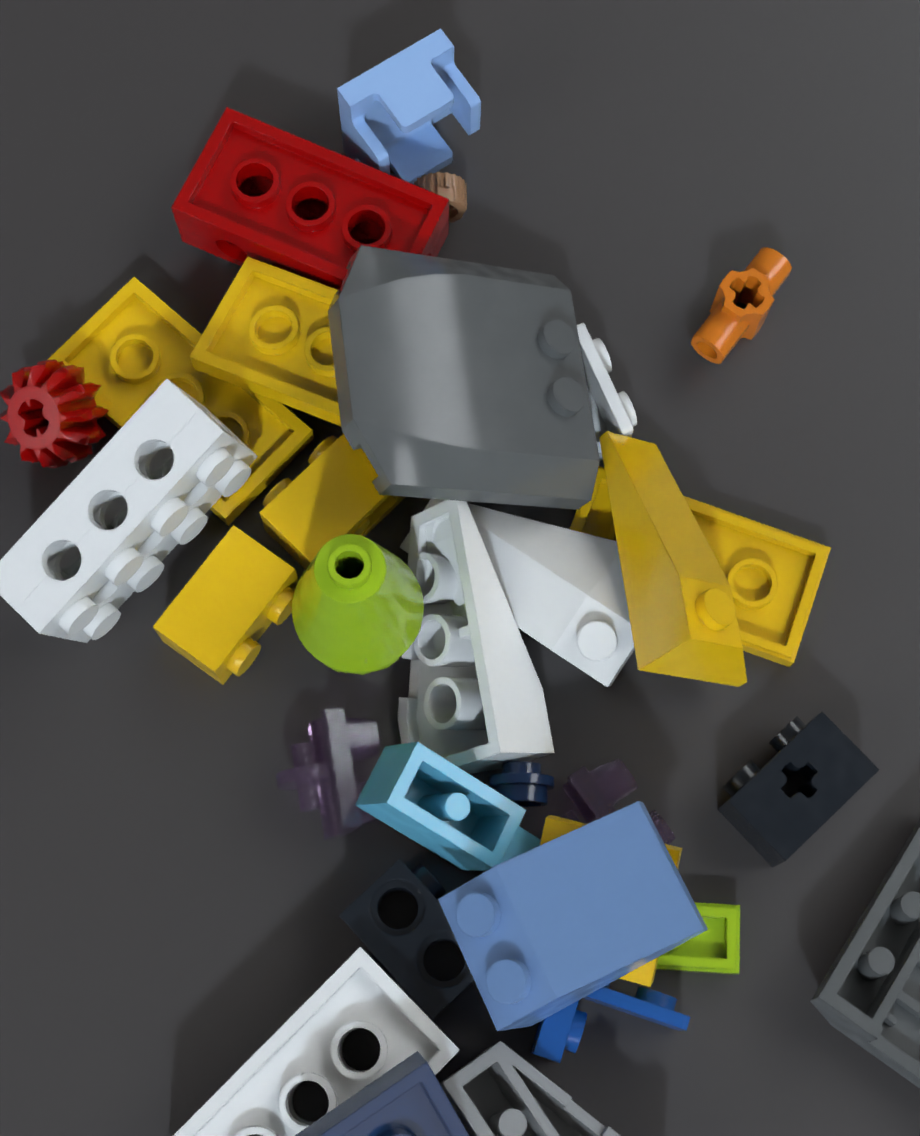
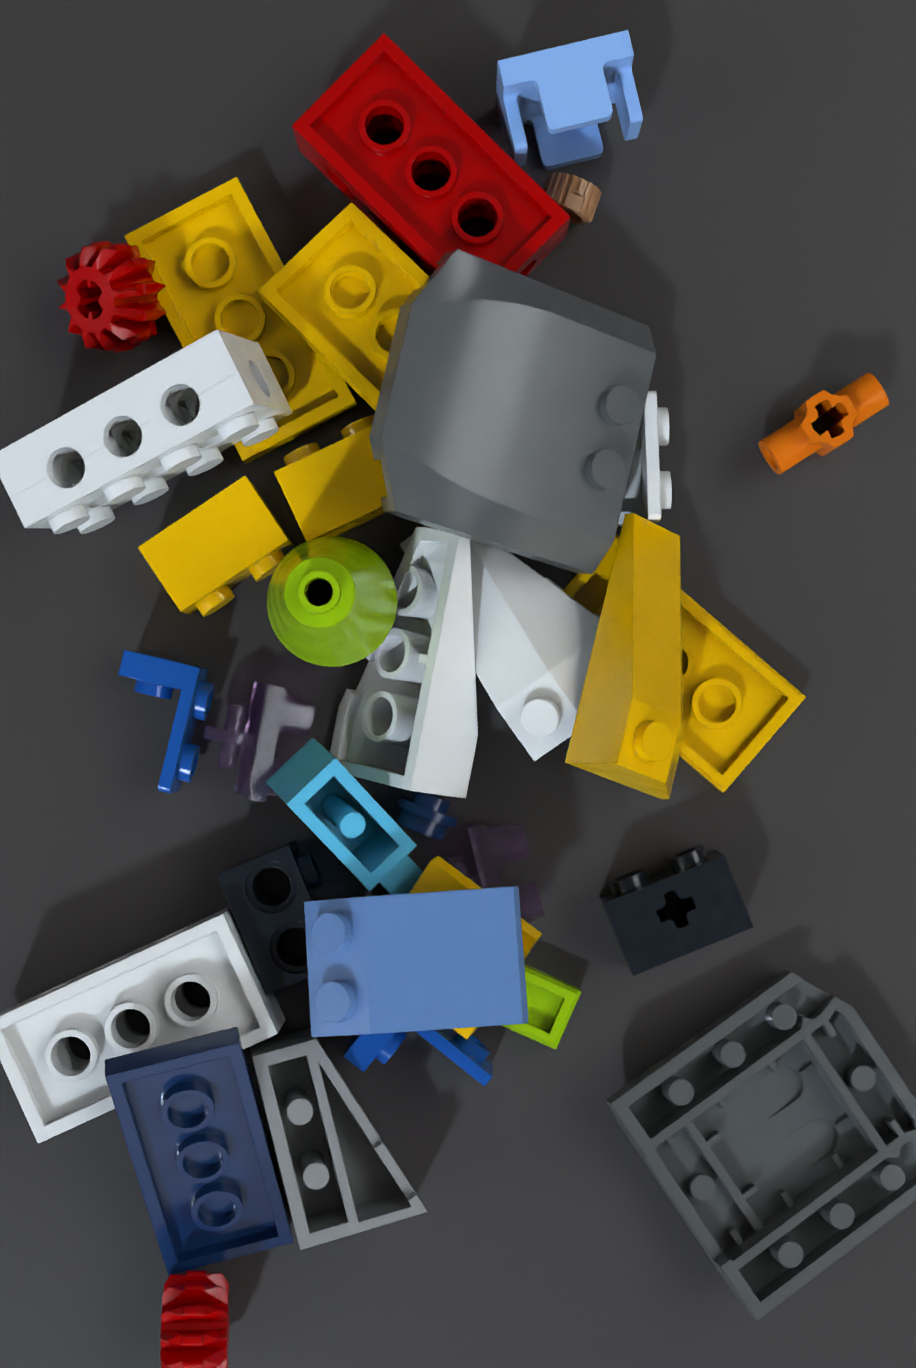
camera: 20 degrees right, 15 degrees up
(213, 747) = (158, 678): none -> blue bracket

